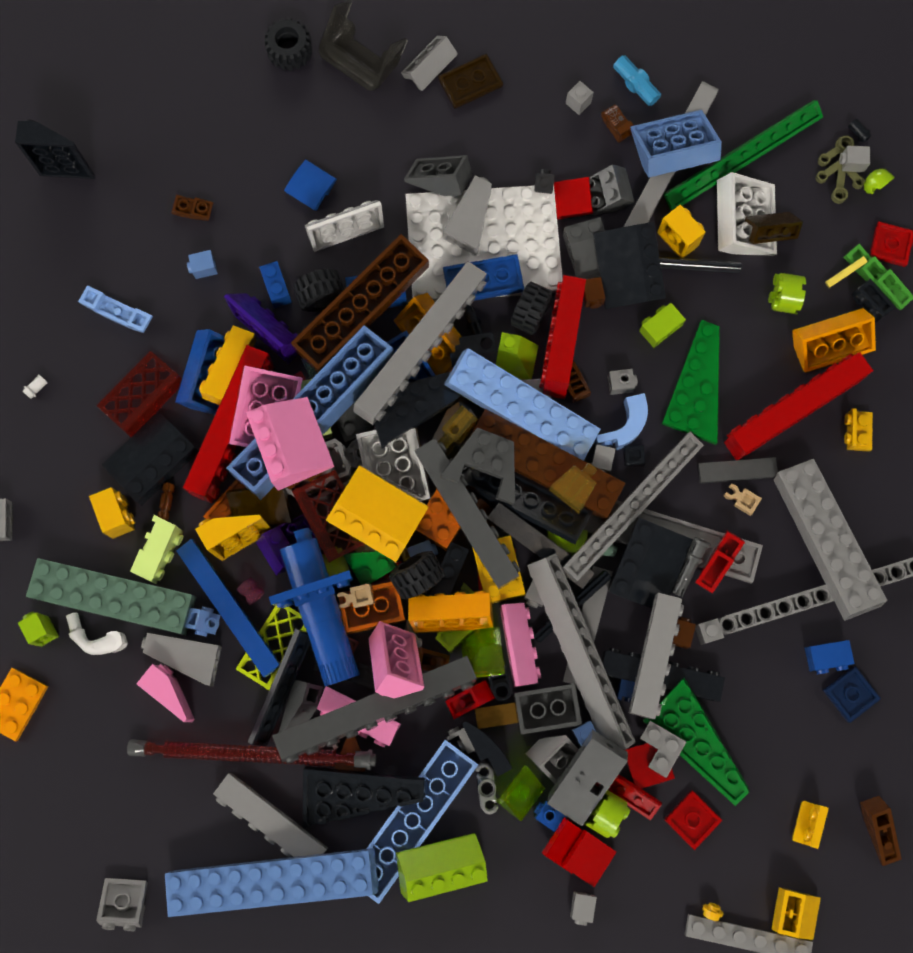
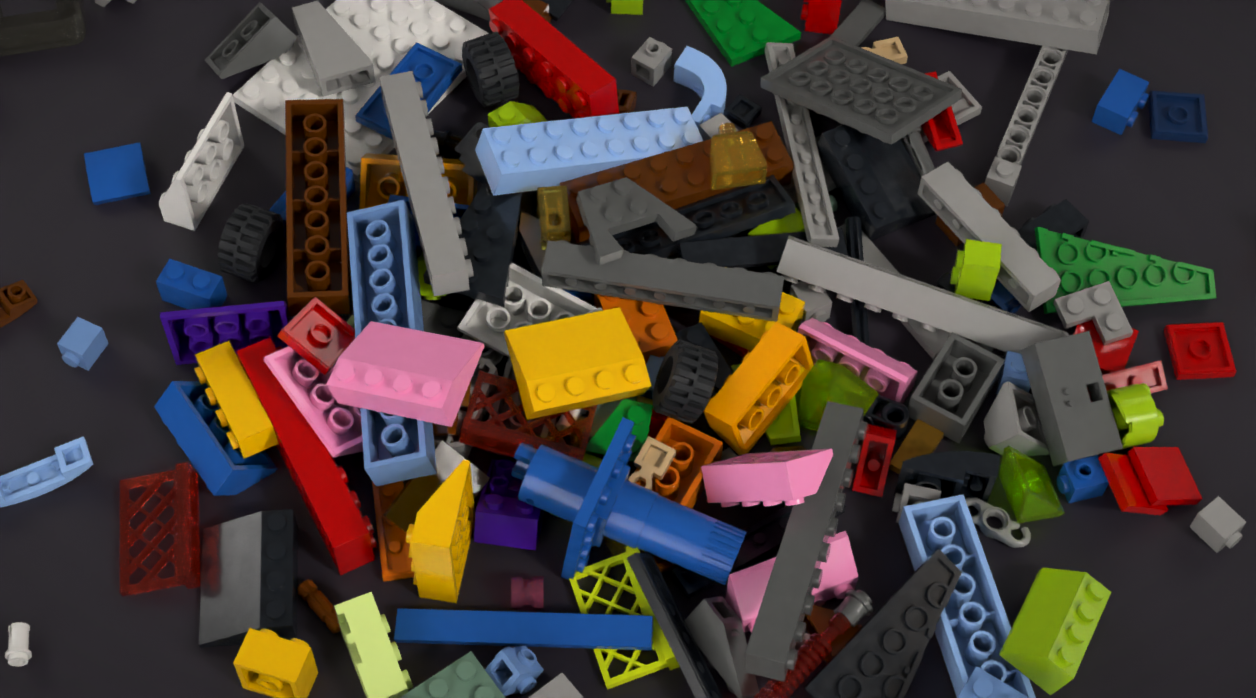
camera: 50 degrees left, 20 degrees down
(284, 377) = (318, 335): none -> red tile
(621, 668) = (976, 269): none -> lime brick
(691, 513) = (861, 89): none -> dark grey plate

